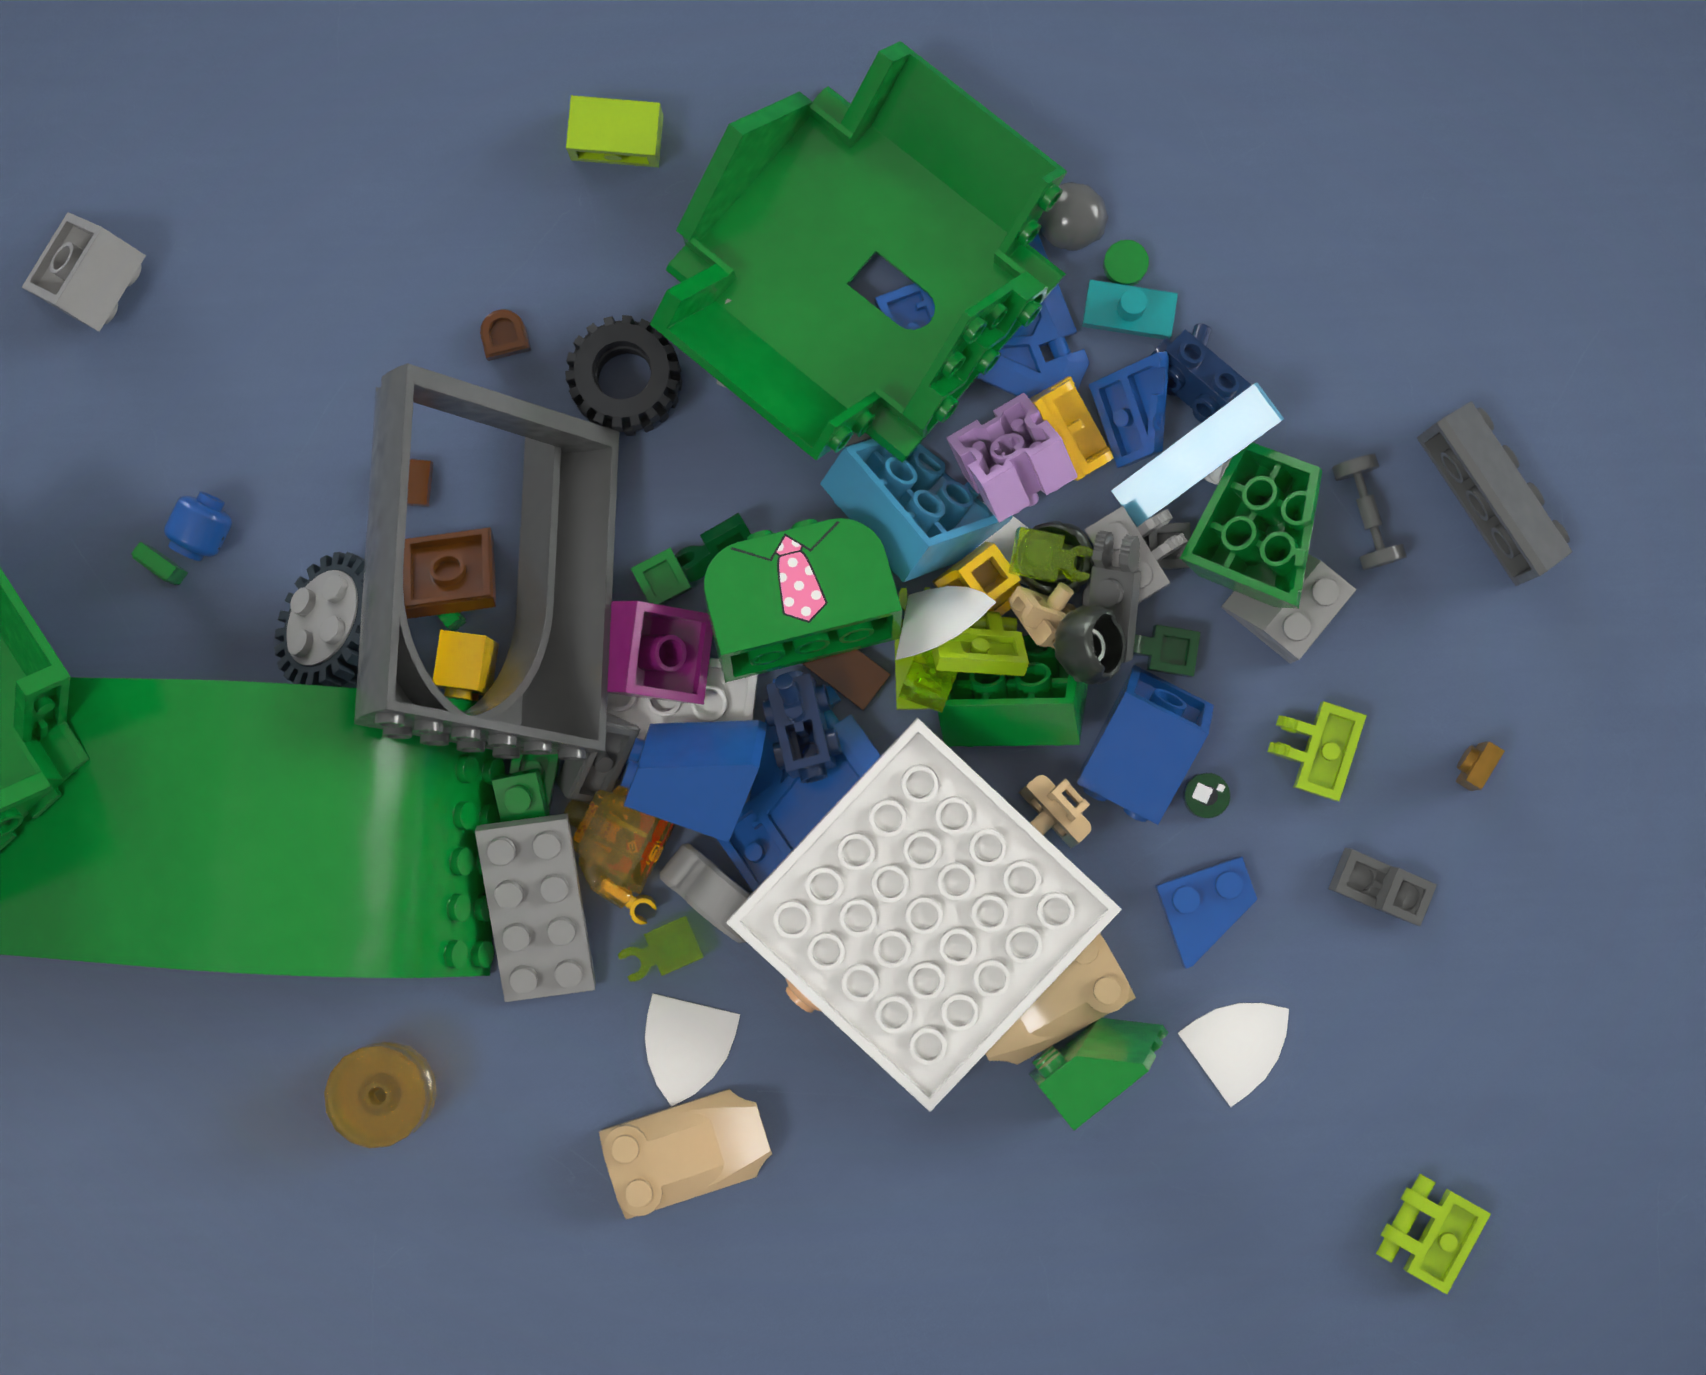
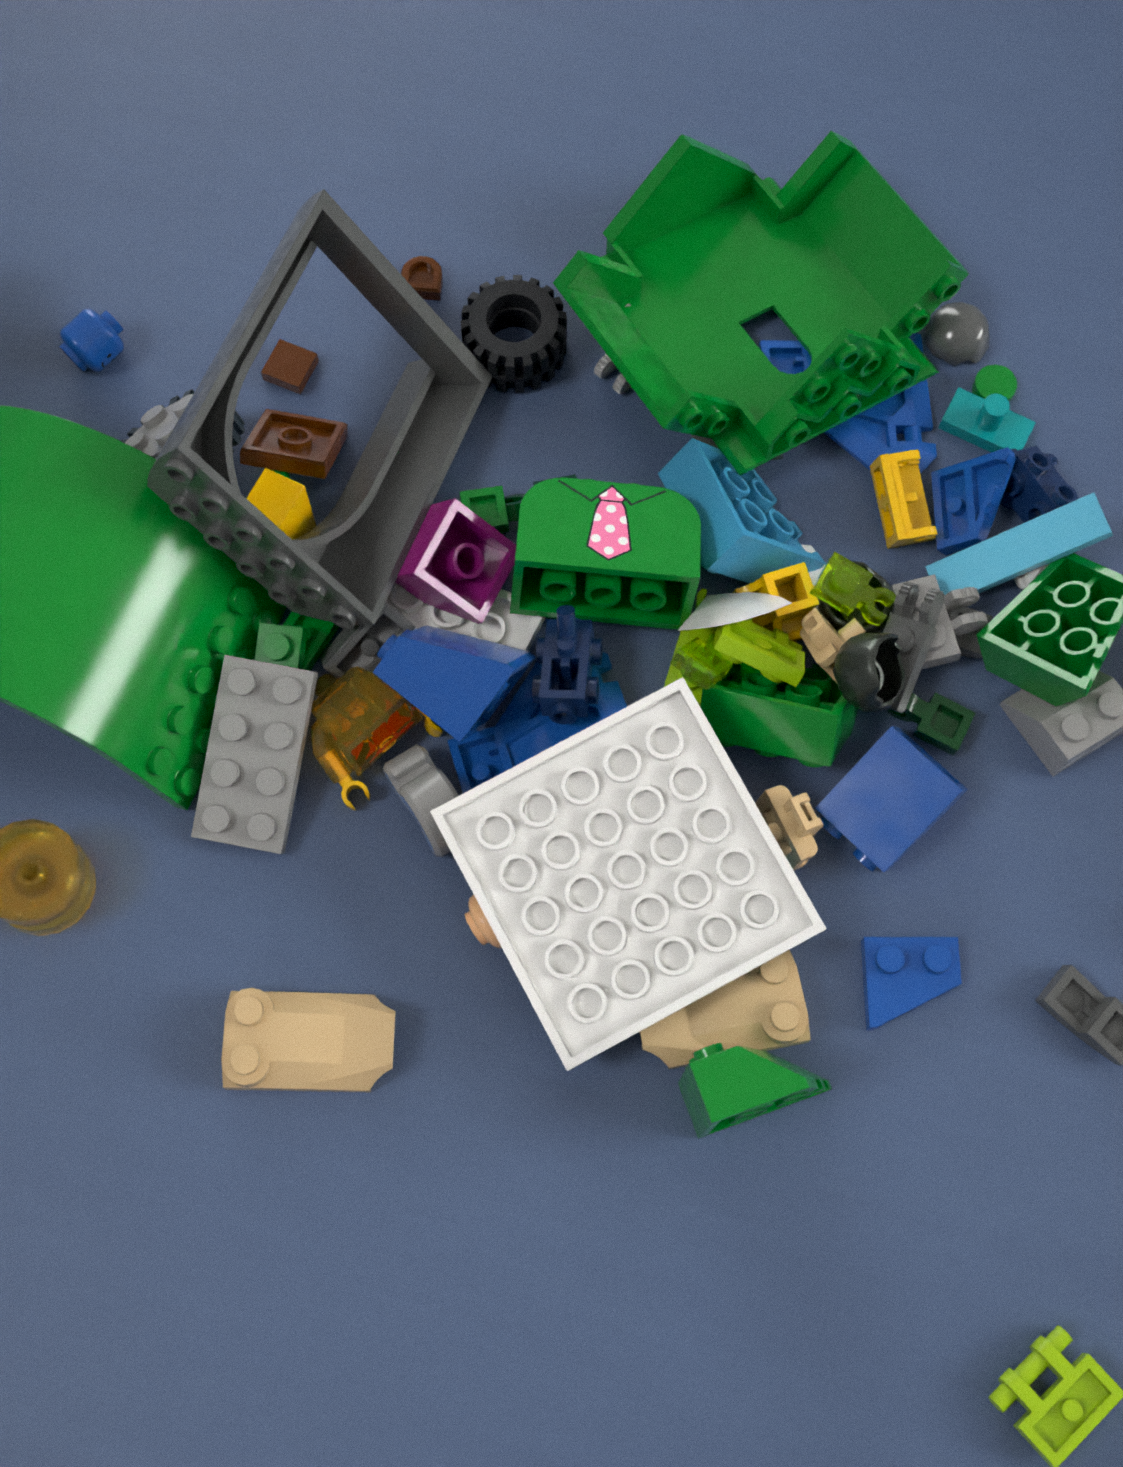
camera: 15 degrees right, 15 degrees down
(84, 271) = (90, 124): light grey slope -> none
(158, 564) = (44, 360): green tile -> none
(614, 131) = (577, 151): lime panel -> none
(669, 948) = (367, 838): clear neon green plate -> none
(686, 1044) = (349, 940): white sticker -> none
(851, 675) = (629, 650): reddish brown tile -> none
(1012, 457) = (844, 501): lavender brick -> none
(1206, 795) = (937, 869): dark green tile -> none
(1237, 1045) = (899, 1127): white sticker -> none
(1328, 749) = (1070, 866): lime hinge -> none

